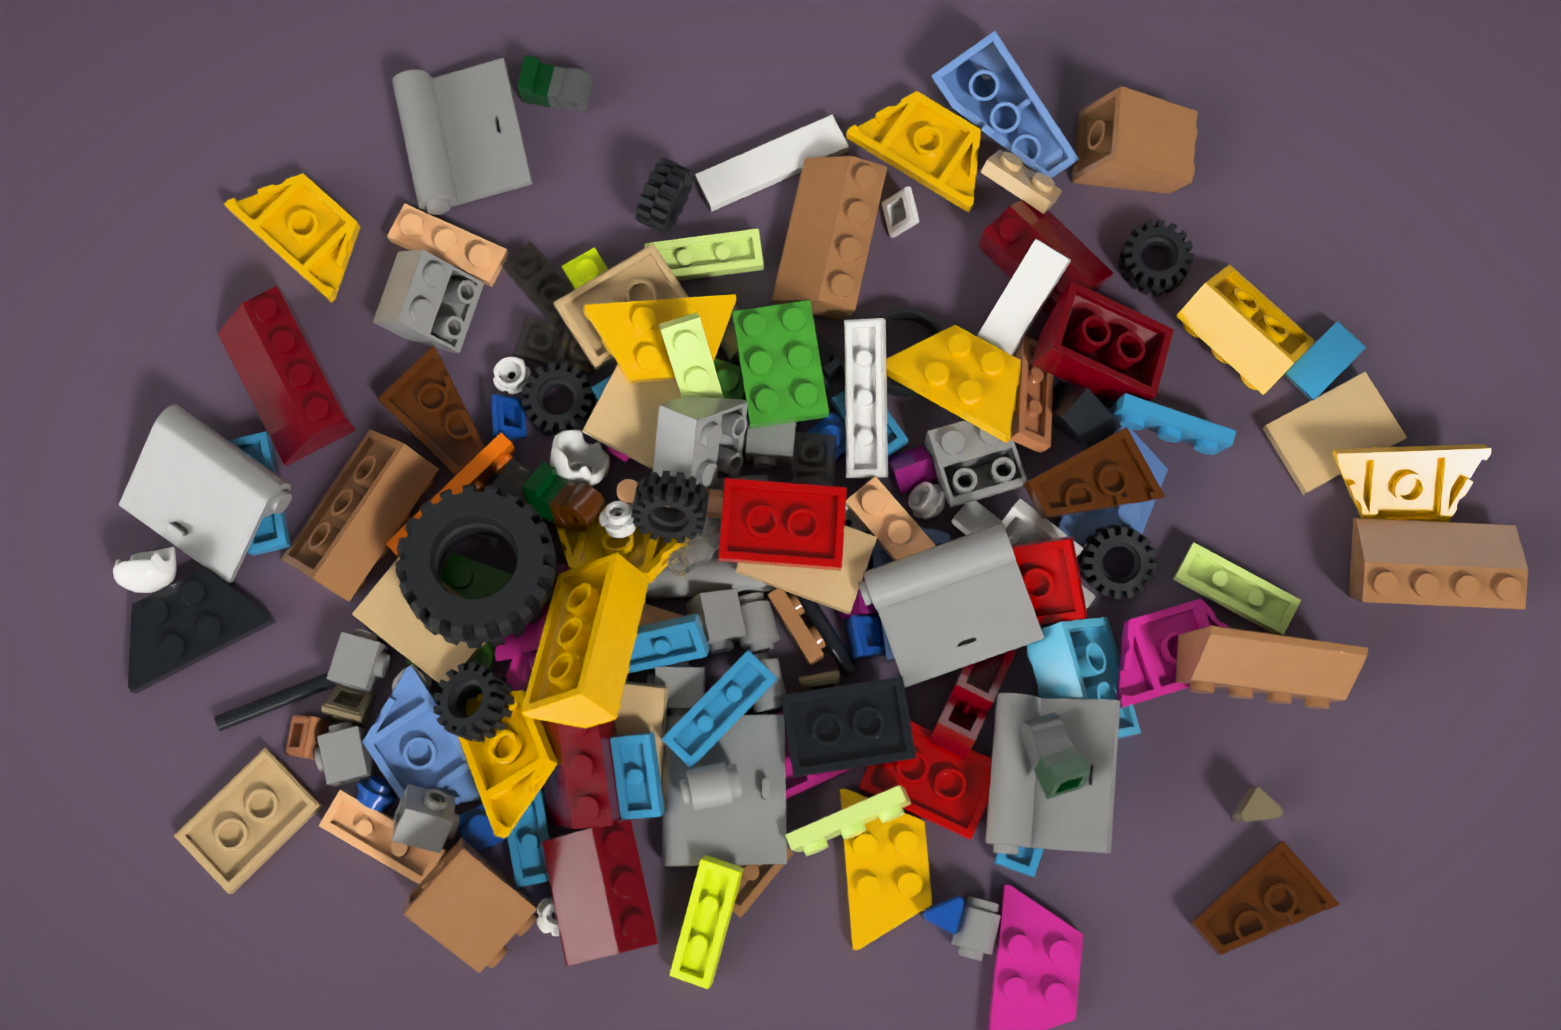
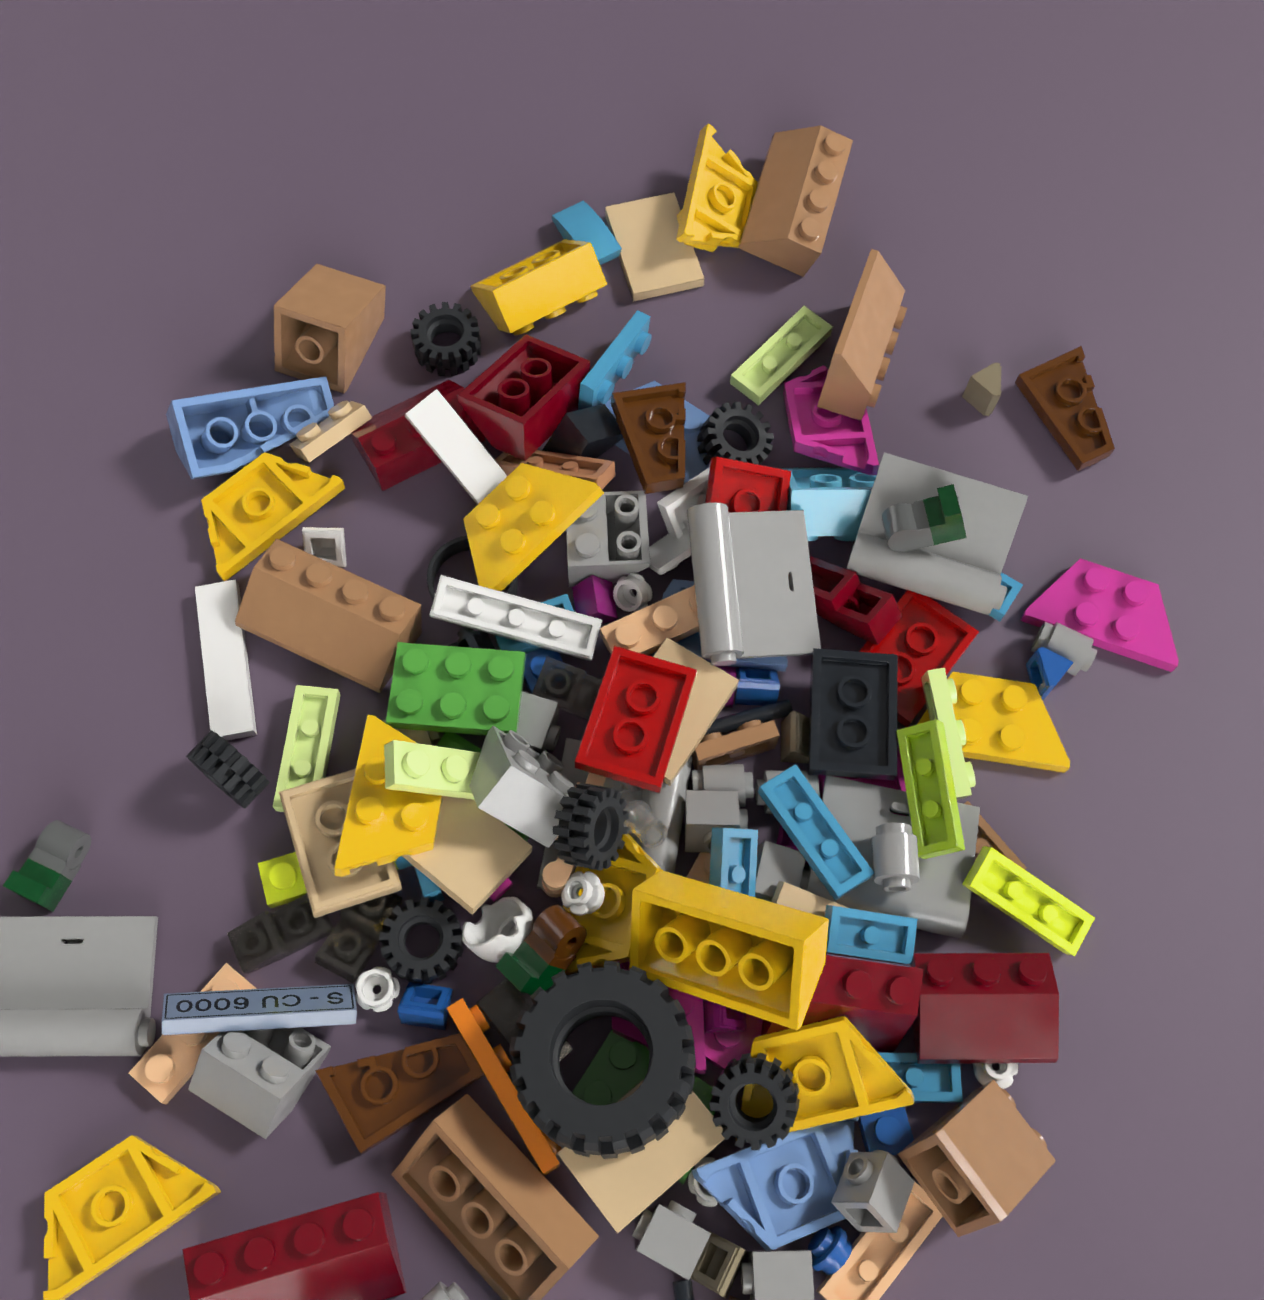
camera: 80 degrees left, 10 degrees down
(469, 285) = (258, 1009): none -> sand blue tile
(784, 808) = (930, 789): none -> lime plate

